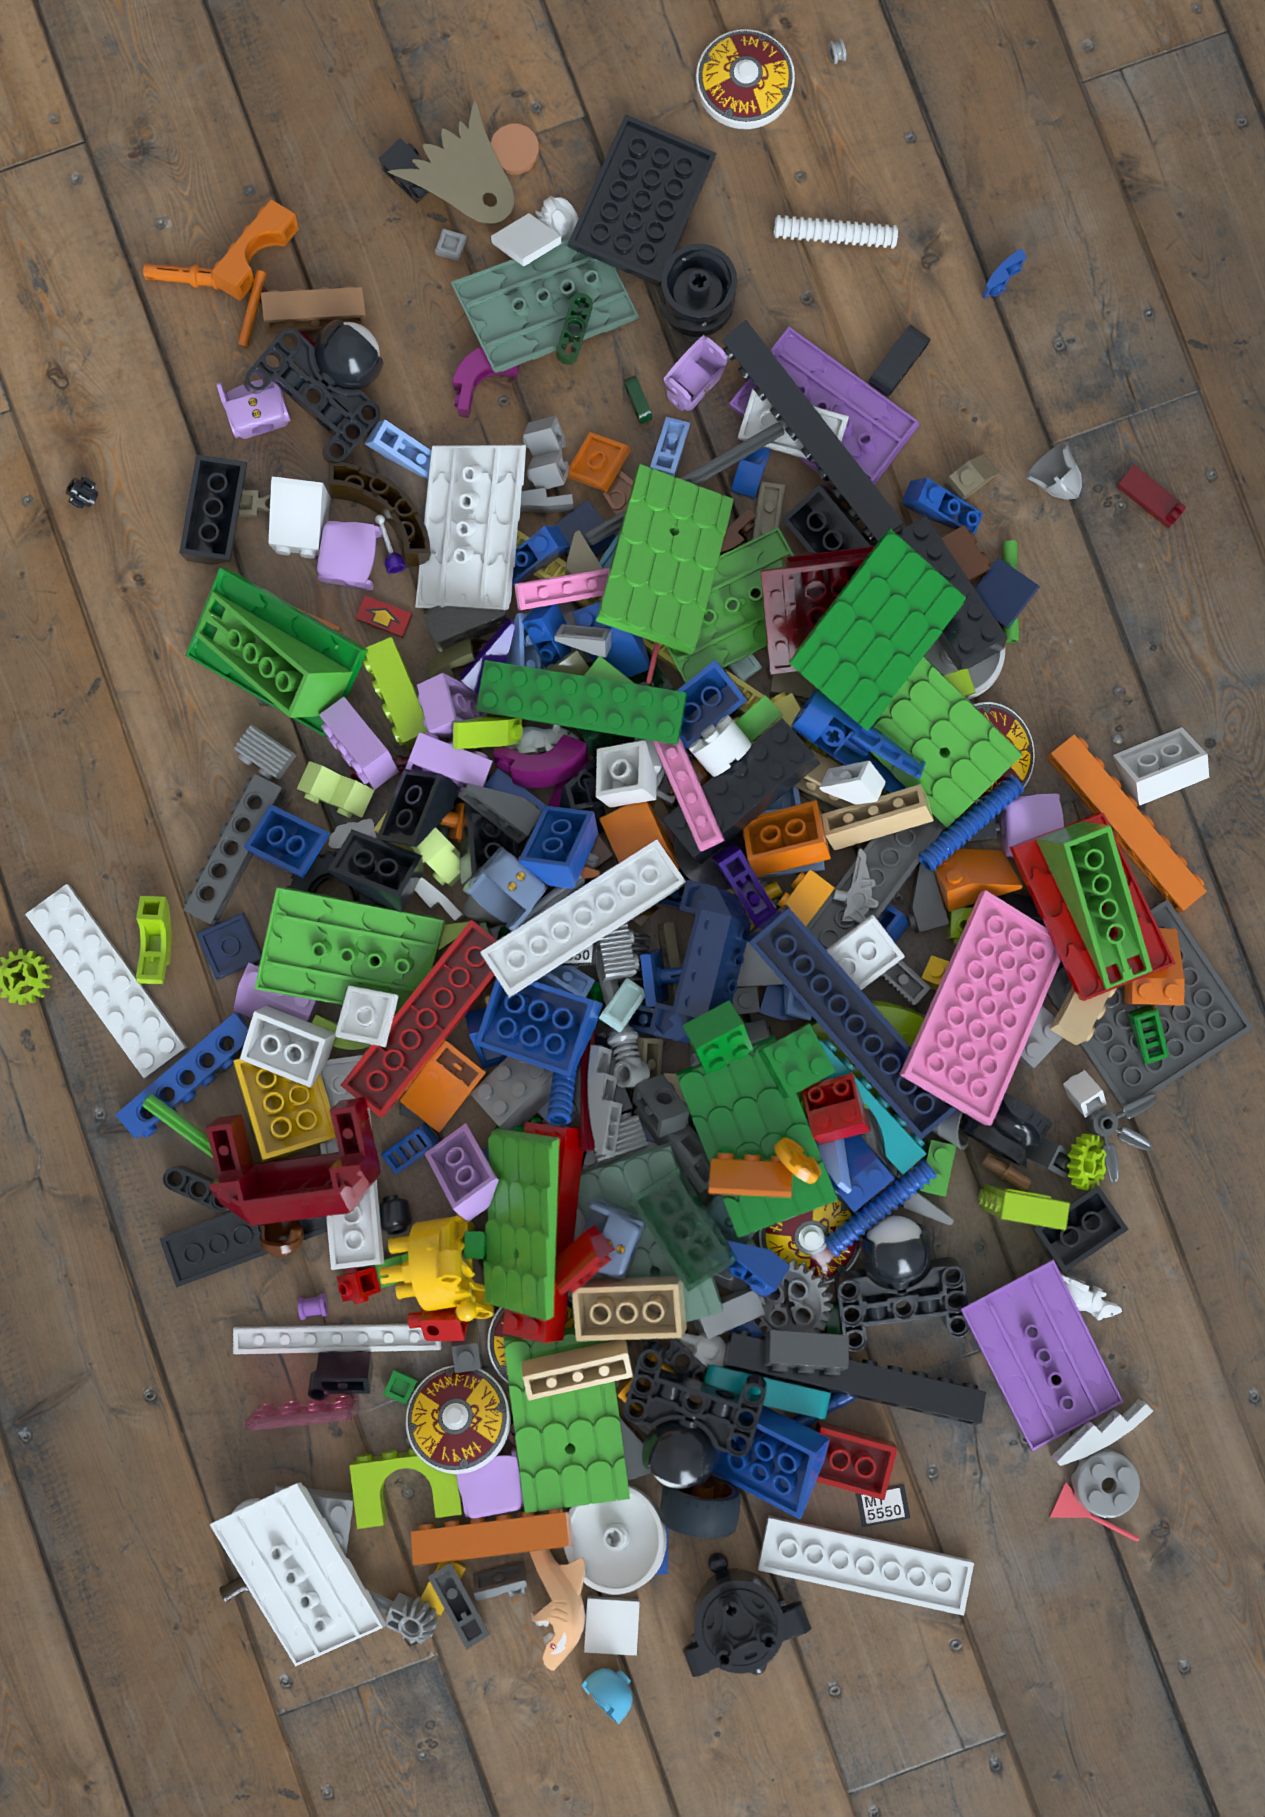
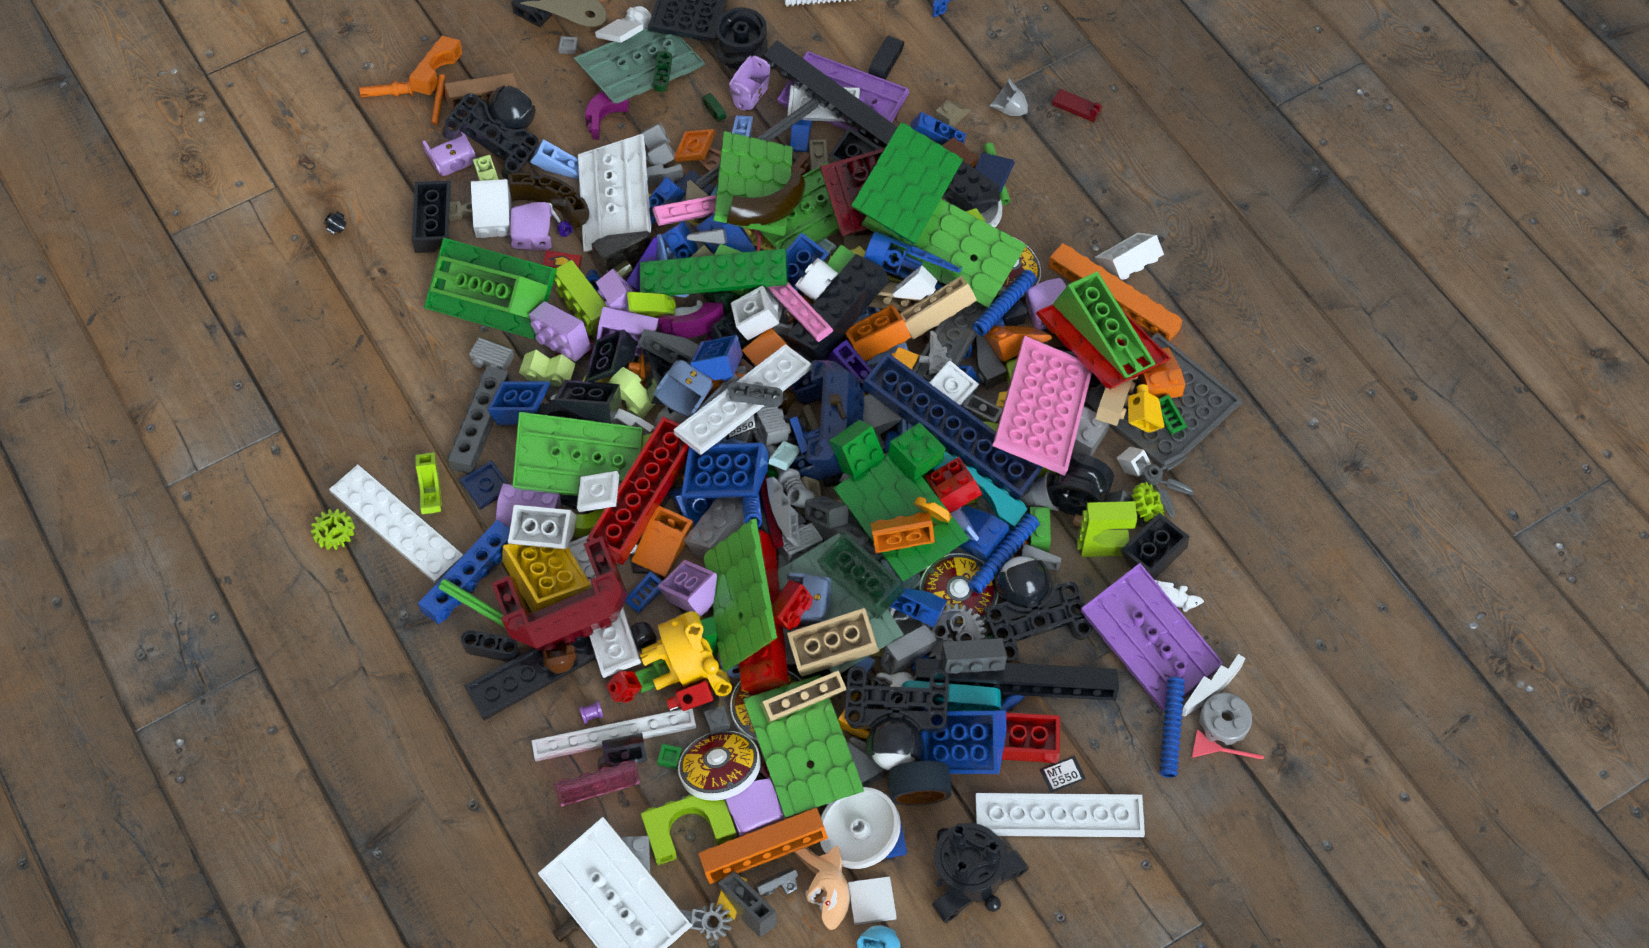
camera: 10 degrees left, 25 degrees down
(300, 454) = (485, 168): none -> yellowish green slope
(419, 660) = (592, 276): none -> blue cone
(595, 910) = (741, 395): none -> dark grey beam
(672, 621) = (768, 208): none -> dark brown brick
(705, 961) = (835, 399): none -> dark brown hand
(1034, 1483) = (1171, 727): none -> blue piece
(1119, 1031) = (1145, 410): none -> yellow torso

